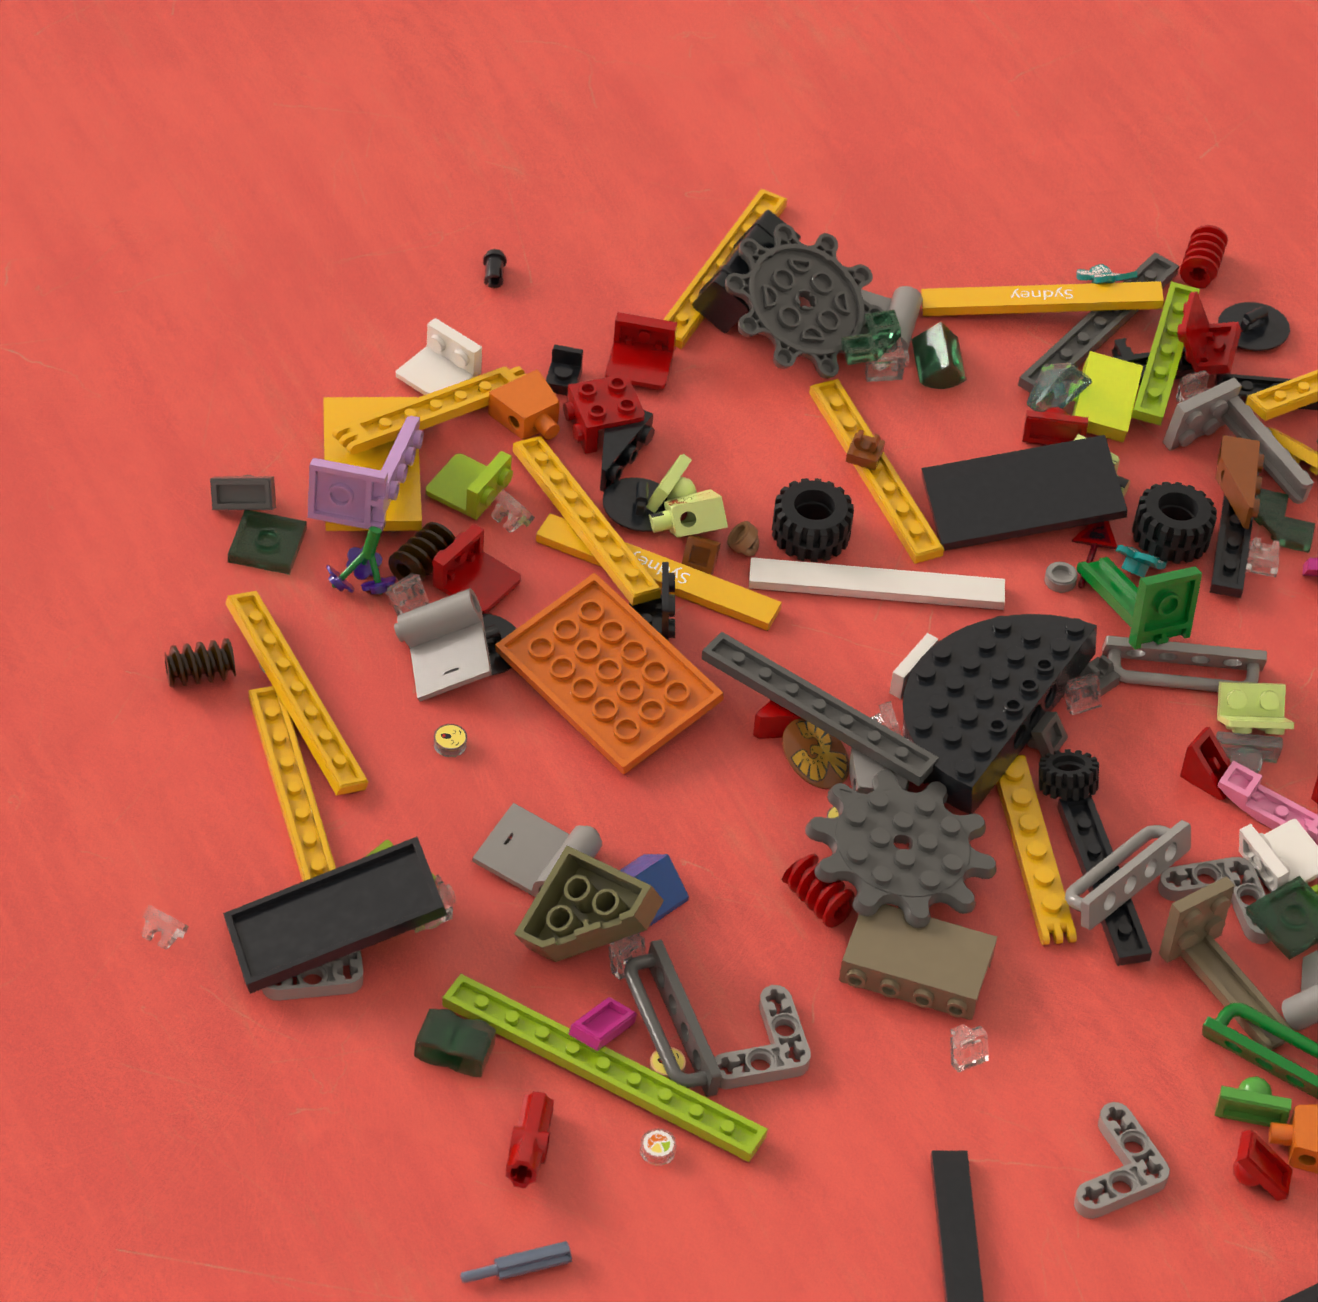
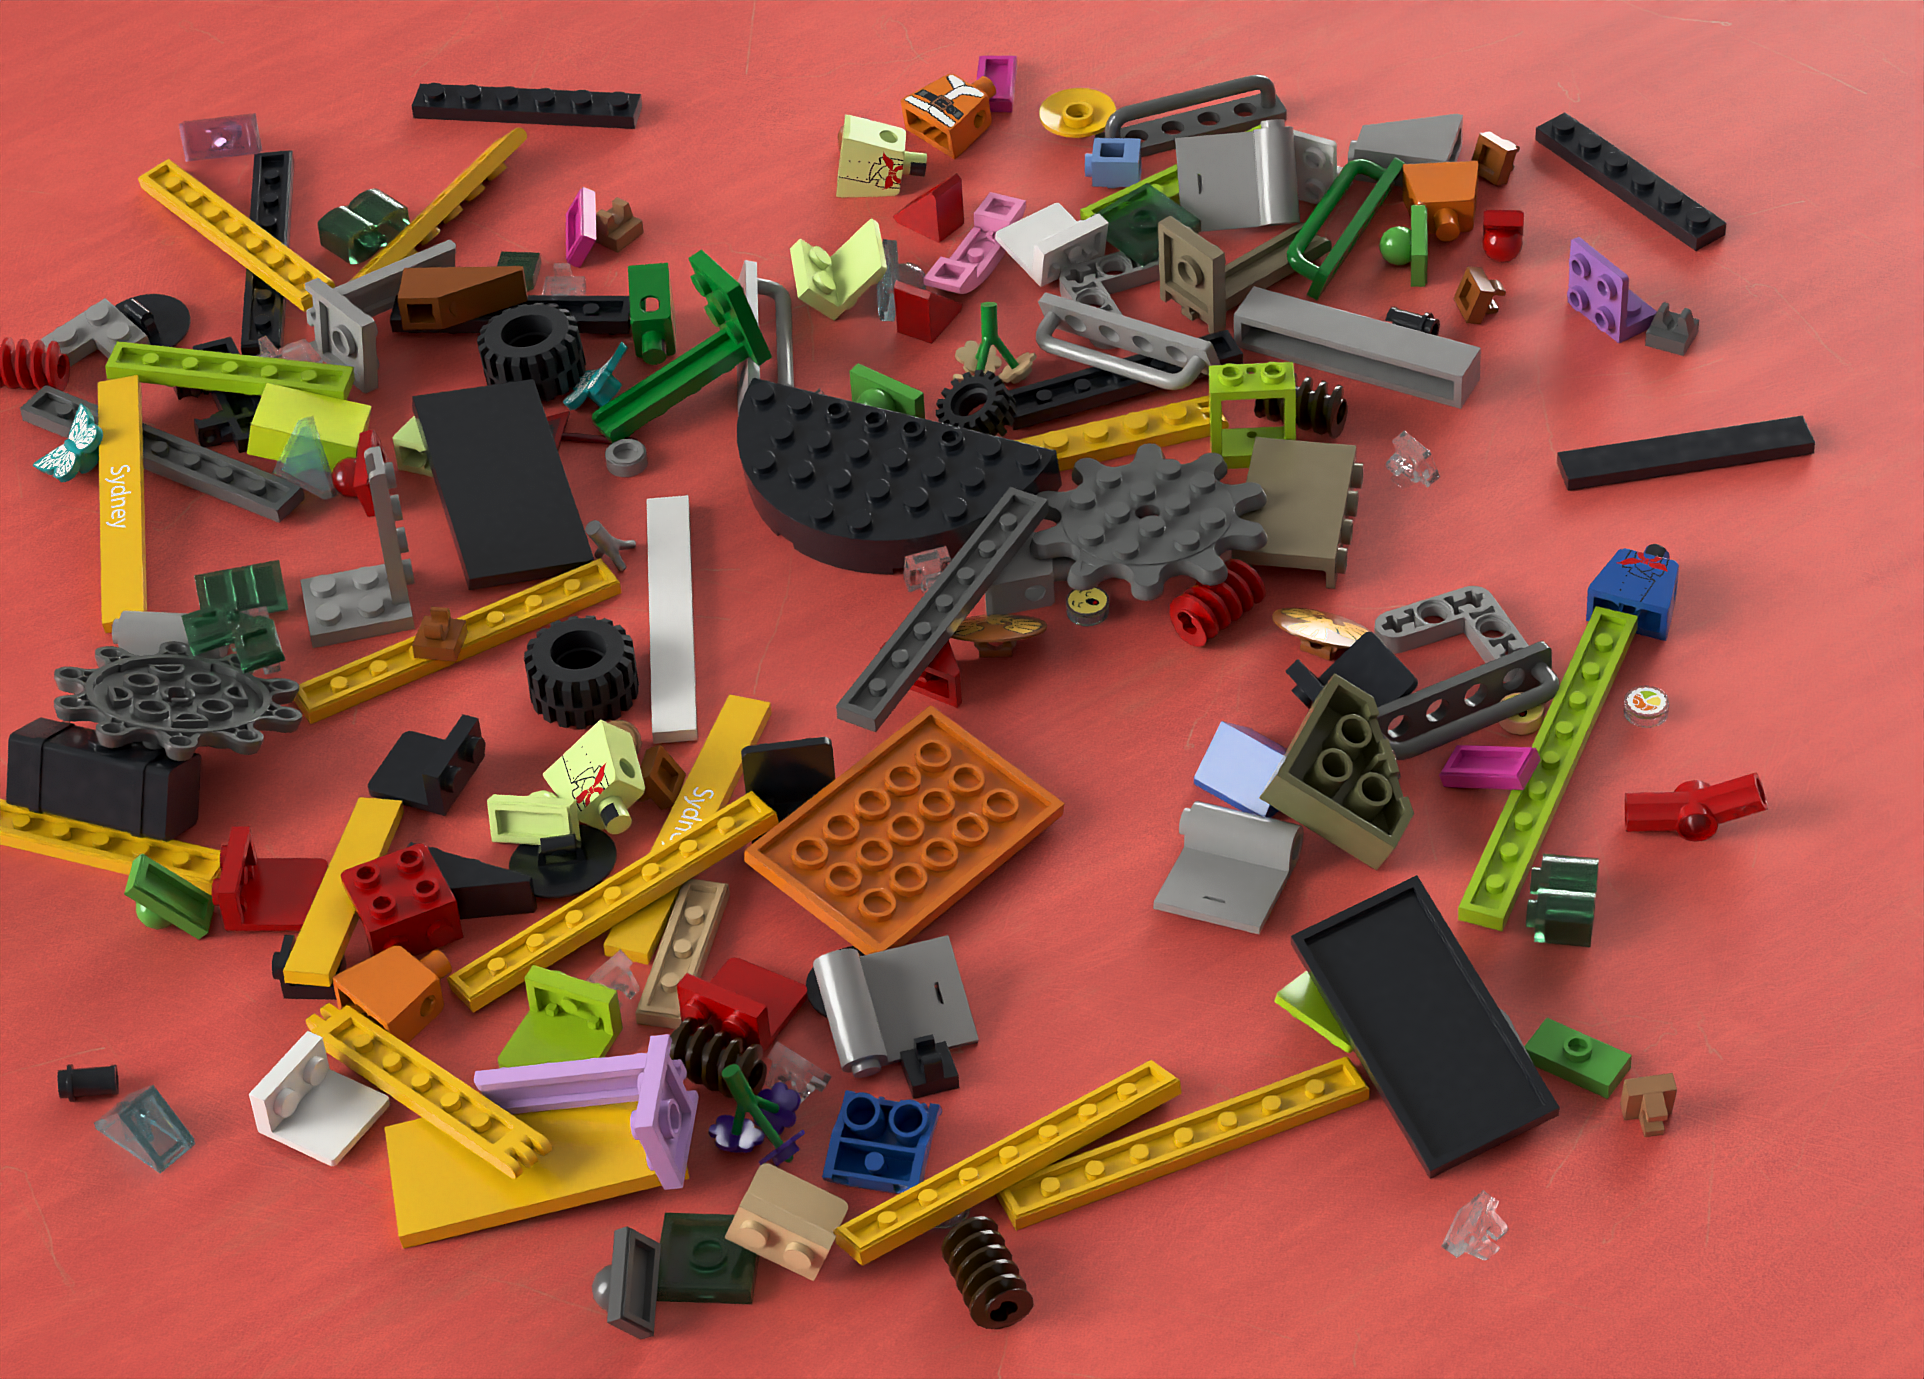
camera: 90 degrees left, 5 degrees down
(244, 1046) = (1649, 1101): none -> medium nougat tile
(271, 569) = (787, 1220): none -> tan bracket
(307, 1023) = (1578, 1058): none -> bright green plate
(333, 629) = (880, 1143): none -> blue slope
(396, 667) = (929, 1067): none -> black tile
(448, 291) = (147, 1128): none -> clear light blue slope
(450, 740) = (1049, 991): tile -> none
(522, 1263) = (1863, 797): sand blue axle -> none
(538, 556) = (682, 950): none -> tan tile
(636, 293) = (167, 898): none -> bright green tile
(652, 395) = (332, 914): none -> yellow tile
(699, 945) = (1366, 665): none -> black bracket
(737, 439) = (428, 769): none -> black bracket
(776, 949) = (1319, 628): none -> shield
(783, 1164) = (1639, 586): none -> blue torso
(903, 671) = (819, 560): white tile -> none
(926, 415) = (370, 598): none -> light grey bracket
(952, 549) = (608, 544): none -> flat silver bar
(1017, 933) = (1236, 383): none -> lime window
(1048, 986) = (1313, 408): none -> dark brown piece
(1095, 726) = (884, 392): none -> bright green tile
(1120, 1039) = (1357, 347): none -> light grey brick
(1121, 1273) = (1672, 331): none -> dark grey tile
(1131, 1173) = (1533, 323): light grey beam -> none
(1142, 794) = (983, 355): none -> plant
(1145, 1091) = (1423, 323): none -> black pin
(1159, 1224) = (1603, 294): none -> medium lavender bracket
(1179, 1136) = (1476, 295): none -> dark orange tile
(1207, 345) = (214, 327): red bracket -> none
(1218, 594) = (652, 330): none -> green torso
(1240, 297) = (95, 329): none -> light grey plate

